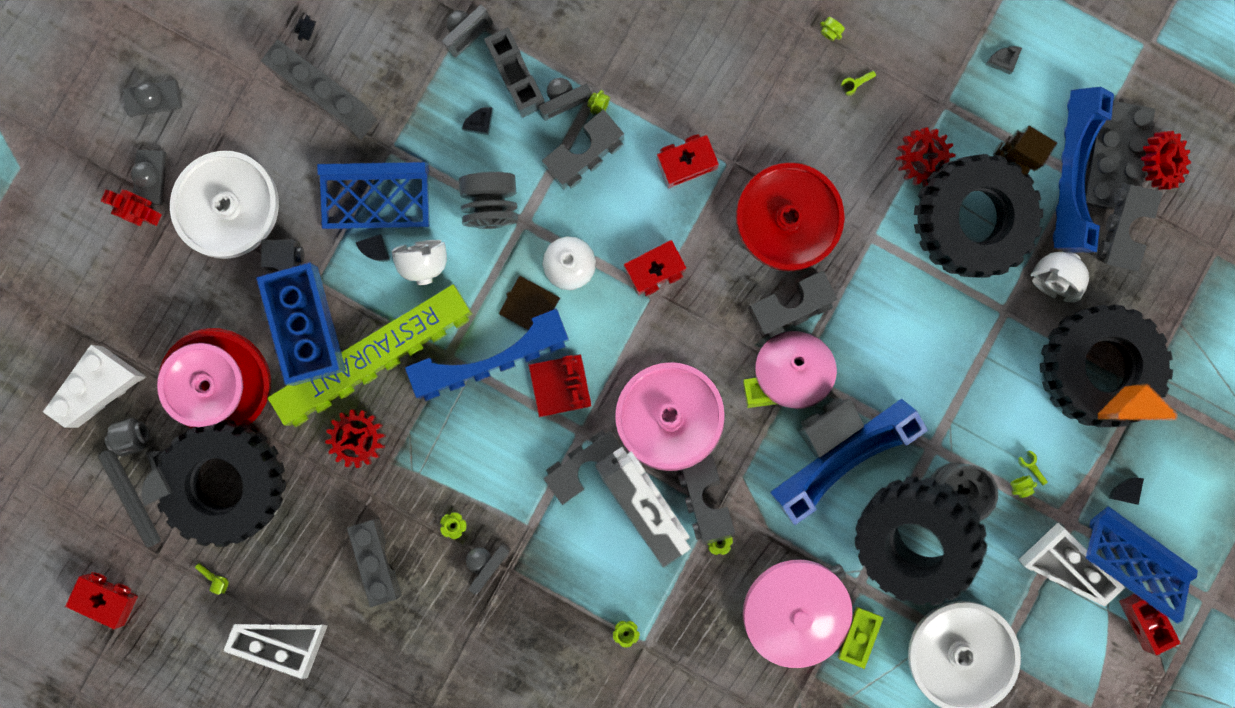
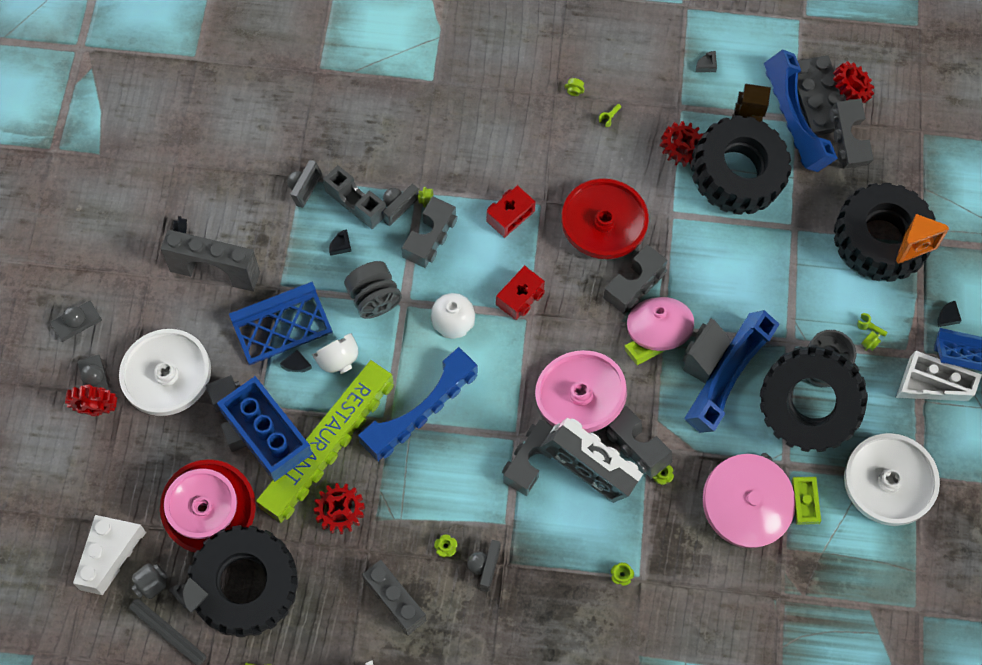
camera: 25 degrees left, 20 degrees down
(527, 302) = (430, 357): dark brown piece -> none
(560, 385) = (485, 406): red hinge -> none
(1061, 275) = (821, 185): white cylinder -> none

